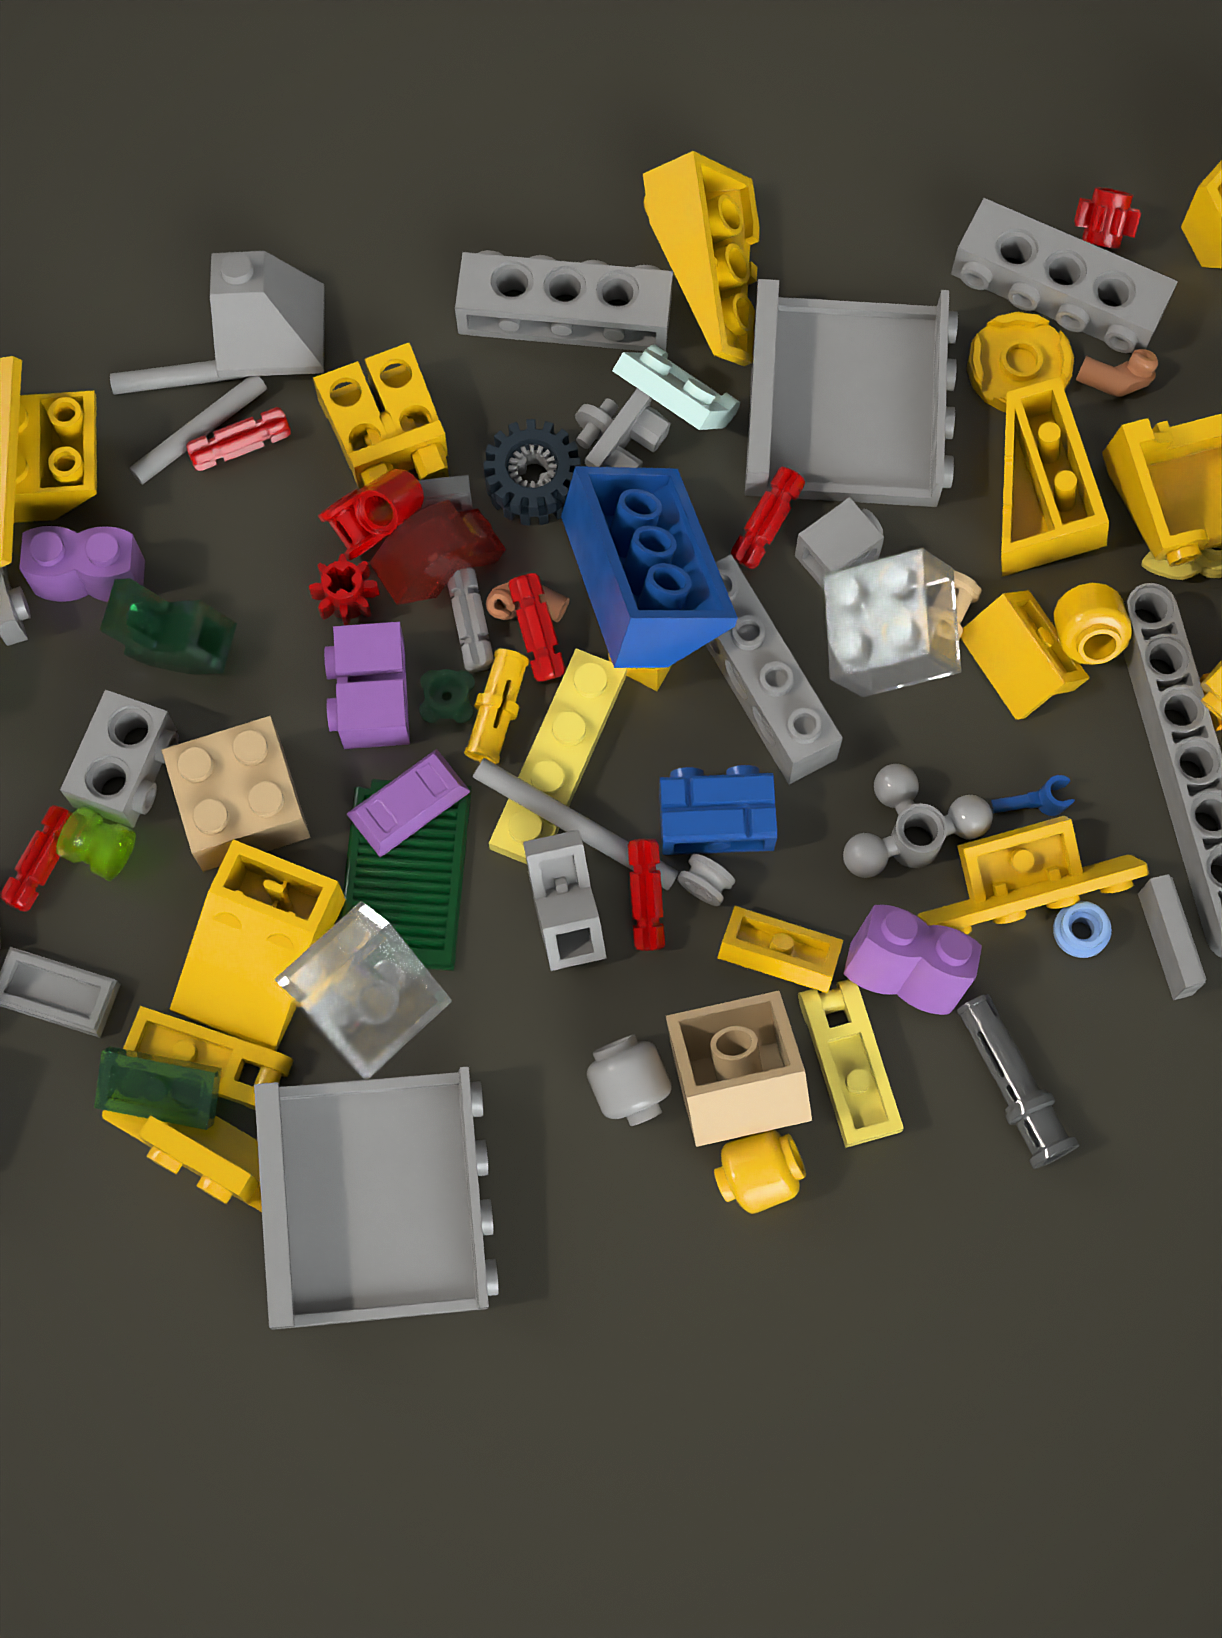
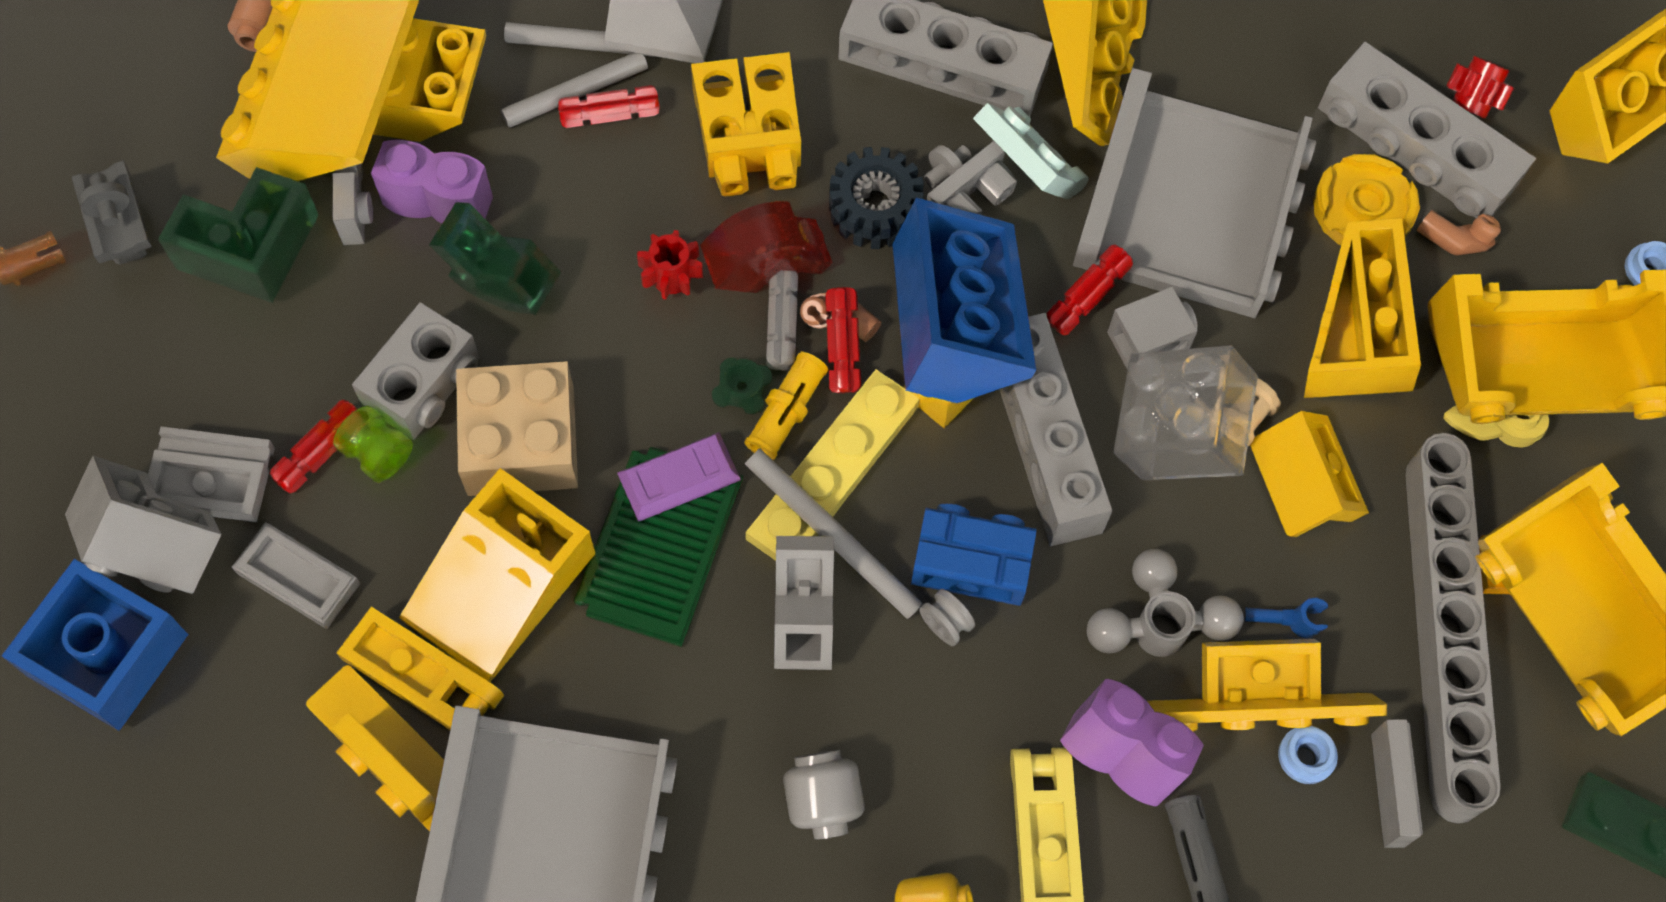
camera: 10 degrees right, 5 degrees down
(157, 1087) = (365, 688): clear green plate -> none
(363, 990) = (587, 641): clear brick -> none
(370, 685) = (671, 358): medium lavender piece -> none
(374, 510) = (716, 196): red piece -> none
(447, 488) = (797, 193): dark grey tile -> none
(646, 894) = (885, 617): red axle -> none
(739, 1068) = (934, 807): tan brick -> none
(780, 949) = (1003, 702): yellow plate -> none
(1092, 623) = (1383, 460): yellow head -> none

